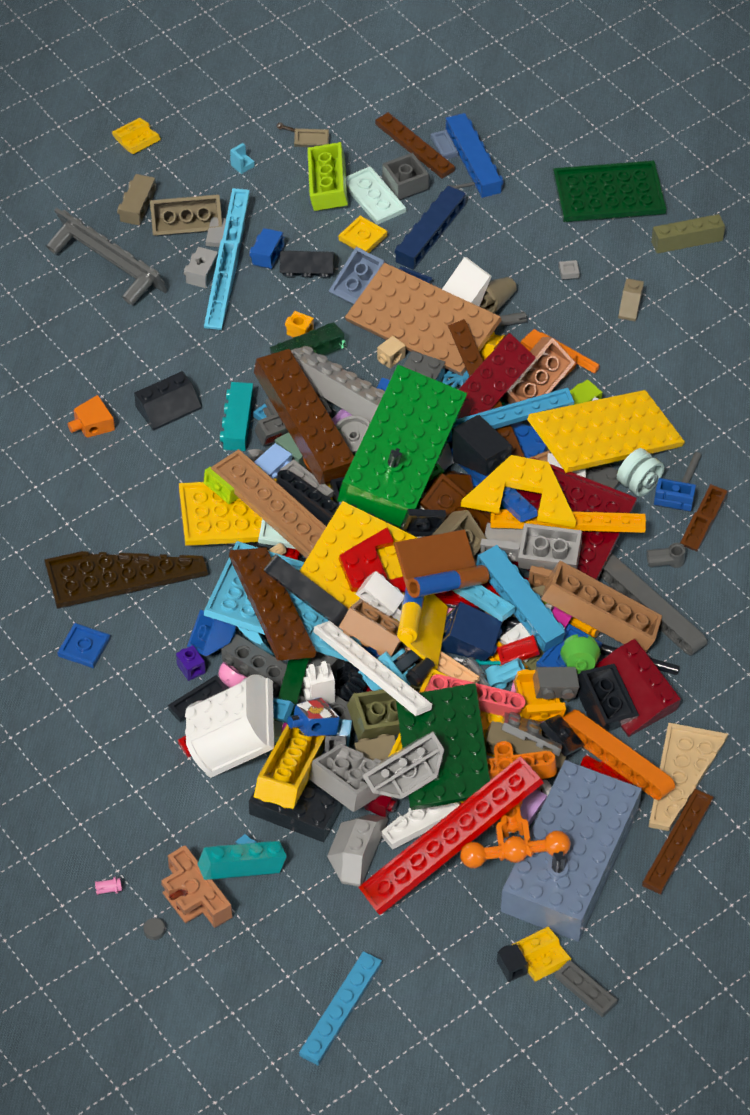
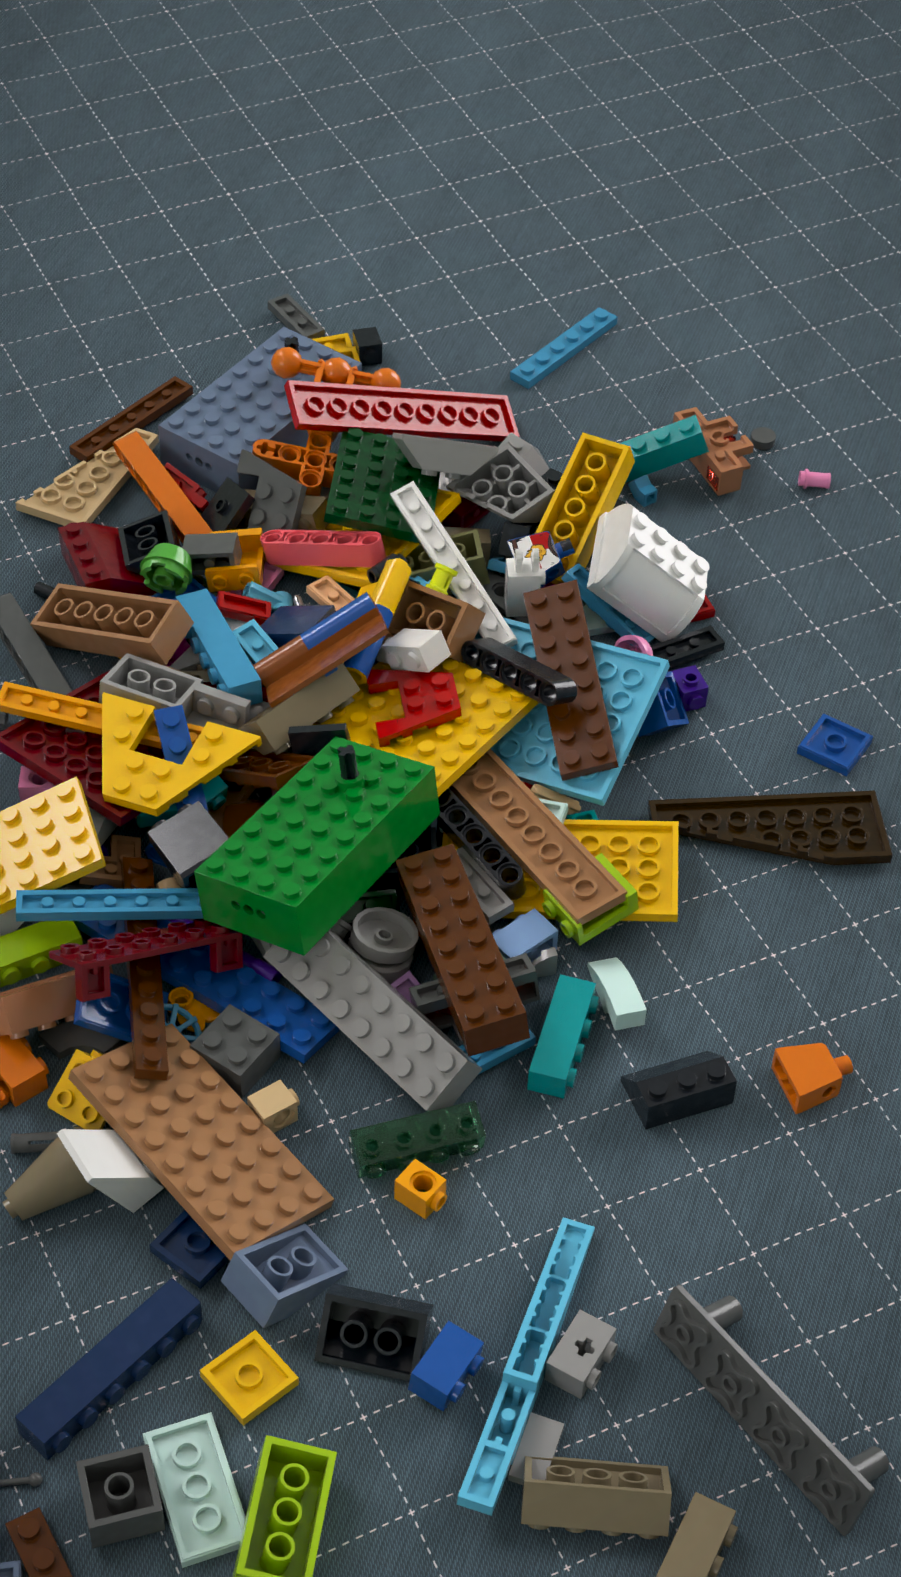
camera: 170 degrees left, 5 degrees down
(208, 441) = (618, 993): none -> light aqua slope
(381, 642) = (441, 578): none -> neon yellow bush

